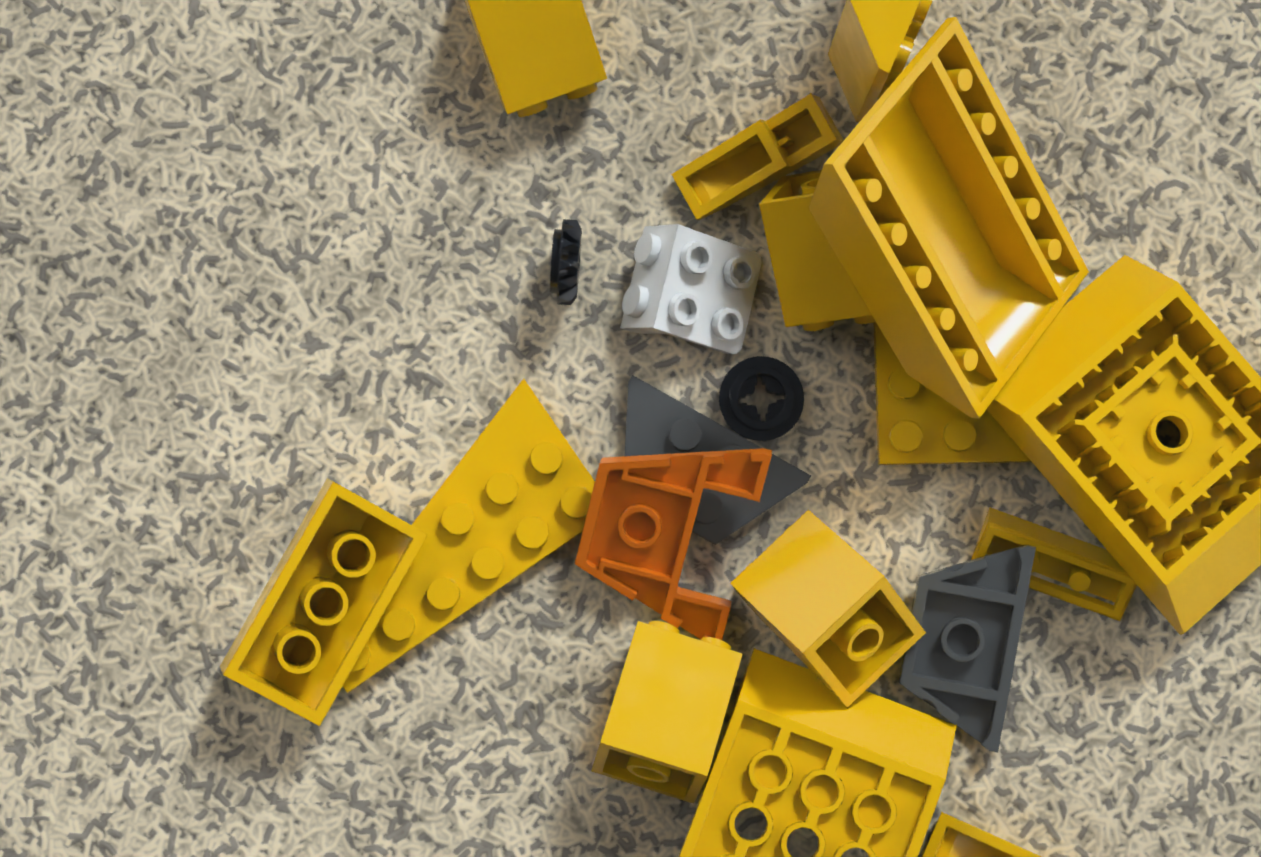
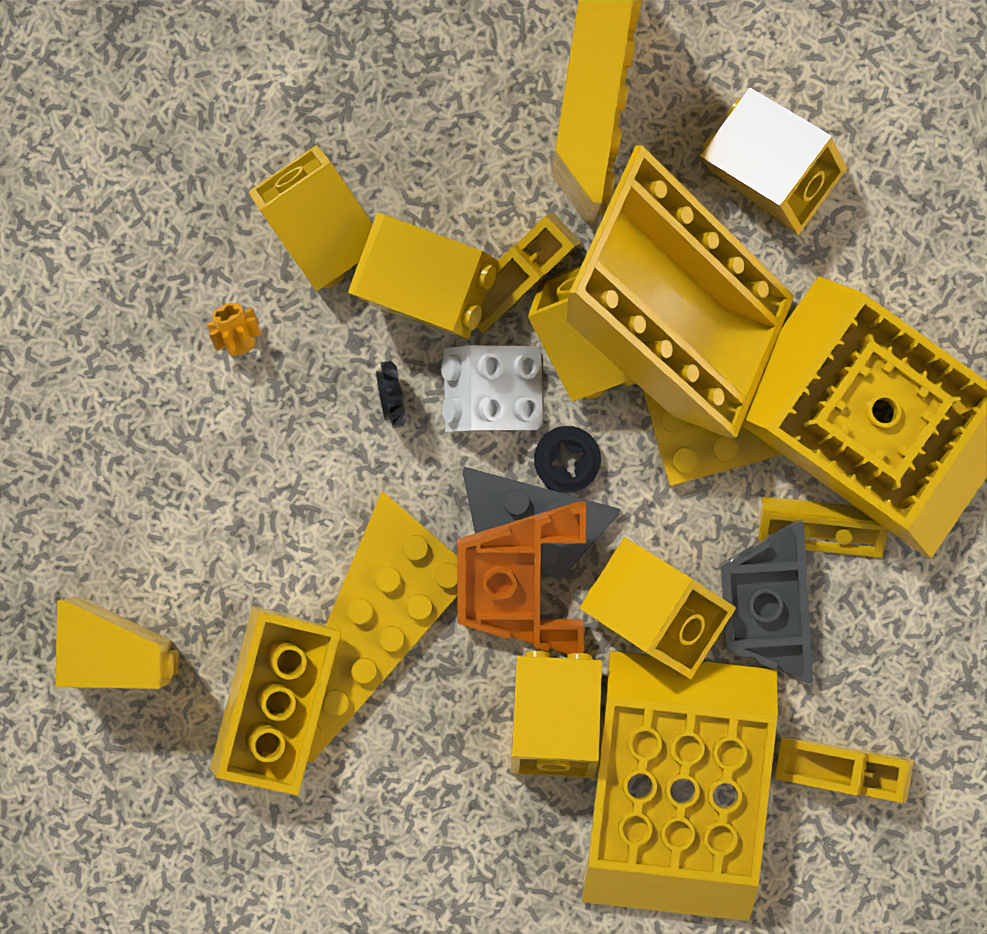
camera: 15 degrees left, 5 degrees up
(132, 483) = (109, 650): none -> yellow slope
(395, 136) = (234, 329): none -> light orange gear
(642, 126) = (423, 276): none -> yellow slope
(1106, 100) = (774, 159): none -> slope

